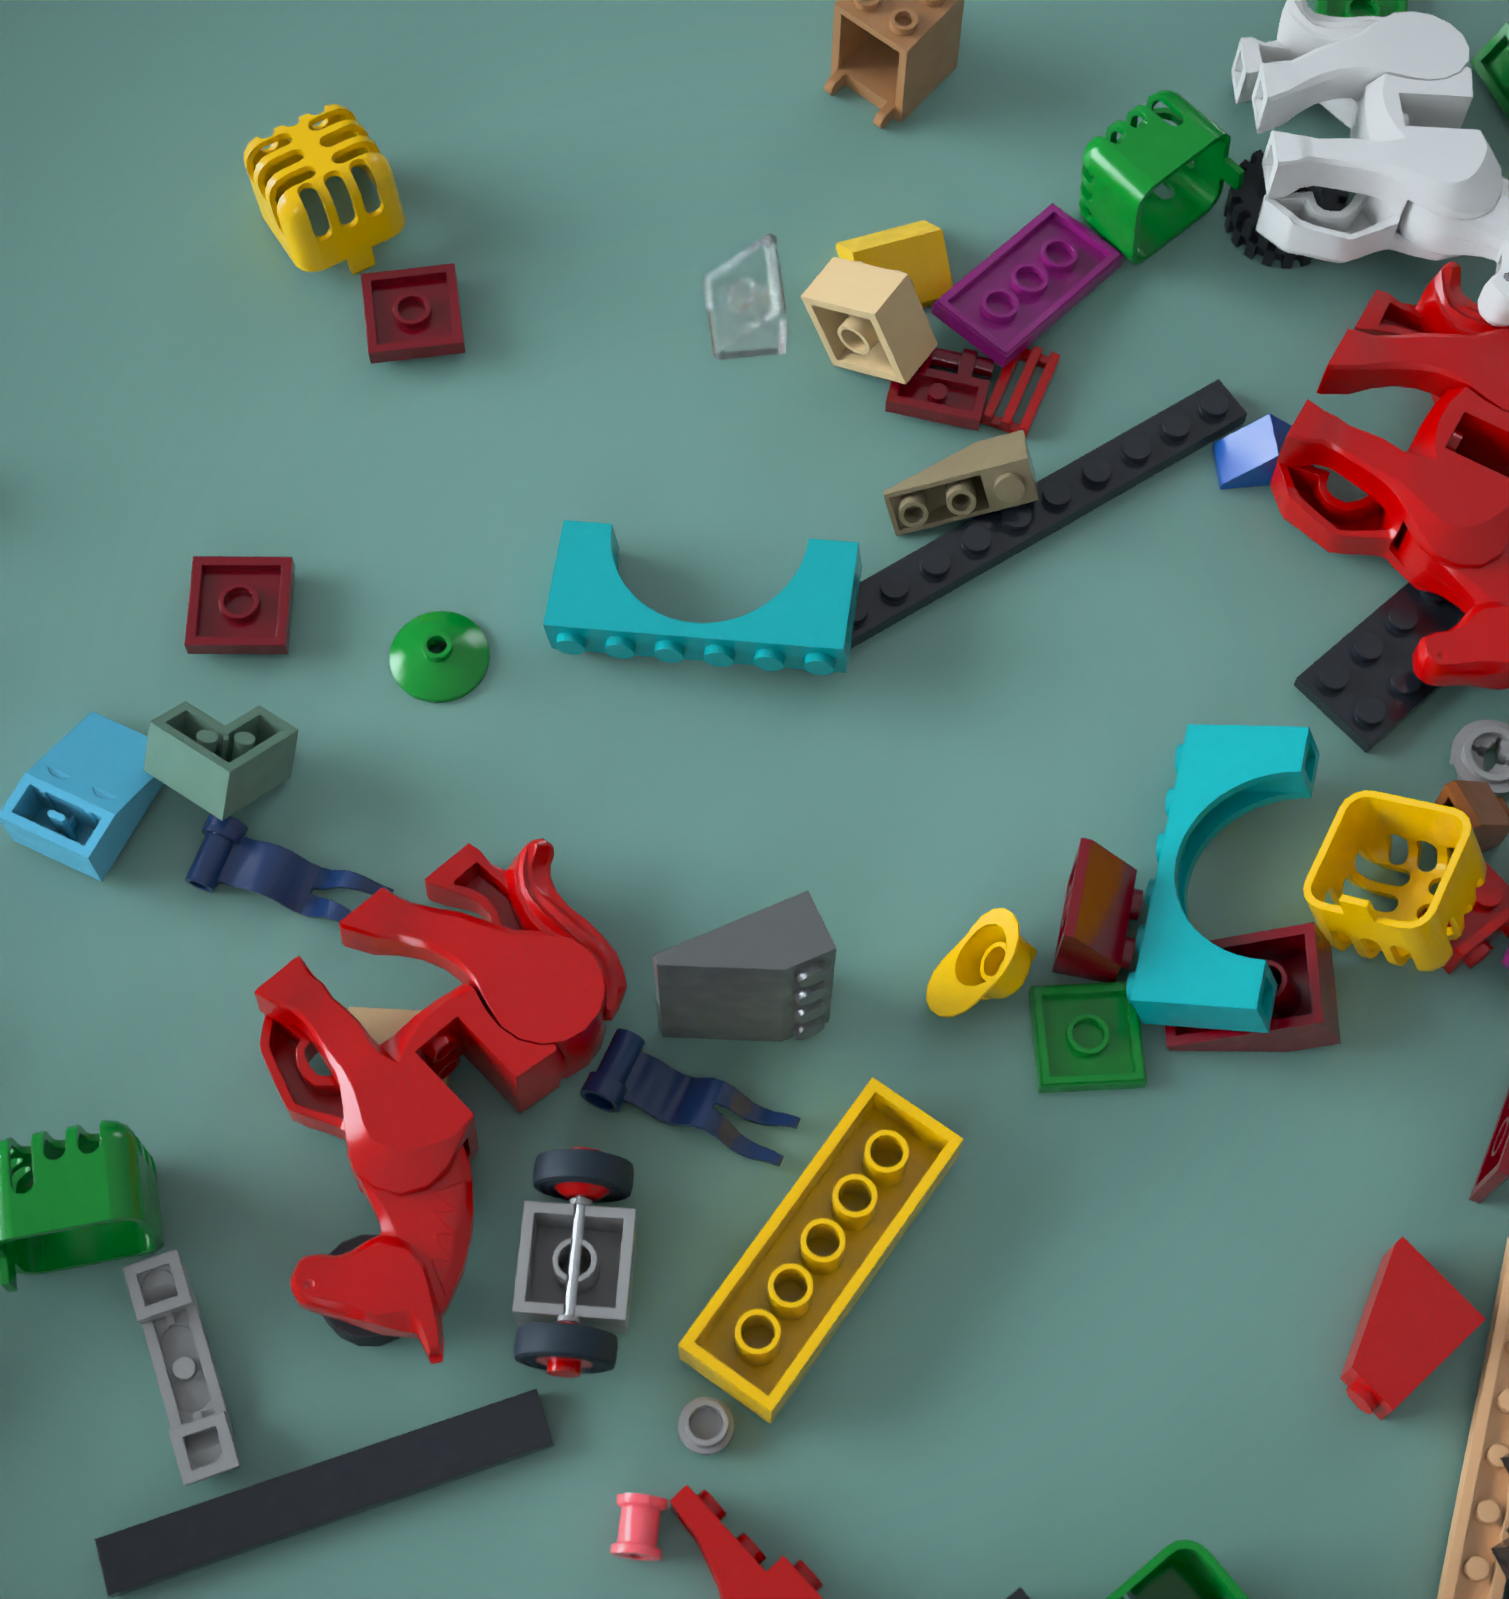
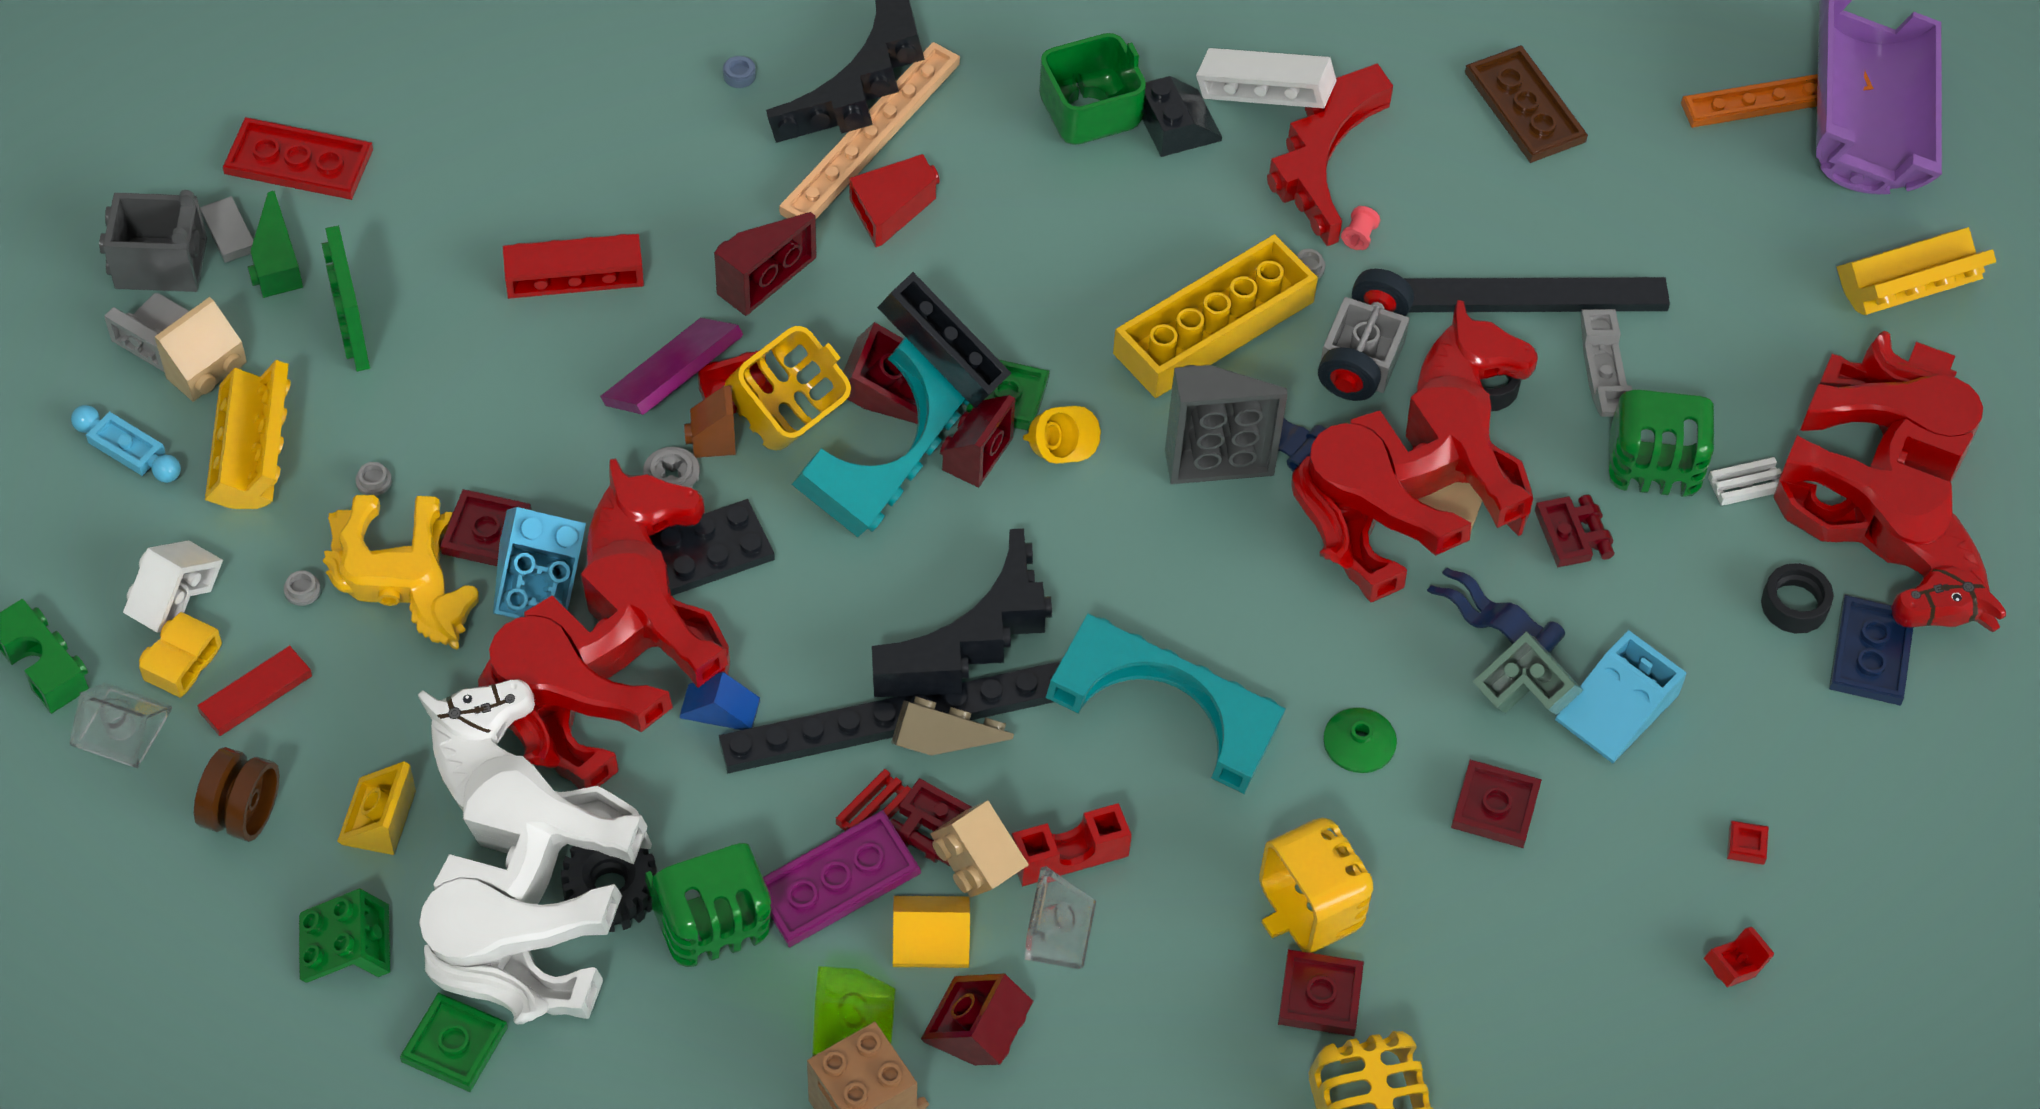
camera: 165 degrees left, 10 degrees down
(210, 1046) = (1565, 533): none -> dark red plate
(445, 364) = (1331, 883): none -> yellow piece
(734, 404) = (1095, 841): none -> red arch
(802, 172) = (978, 1018): none -> dark red slope
(945, 150) = (847, 1003): none -> clear neon green slope
(951, 670) = (941, 659): none -> black arch
(1205, 970) = (943, 340): none -> black brick

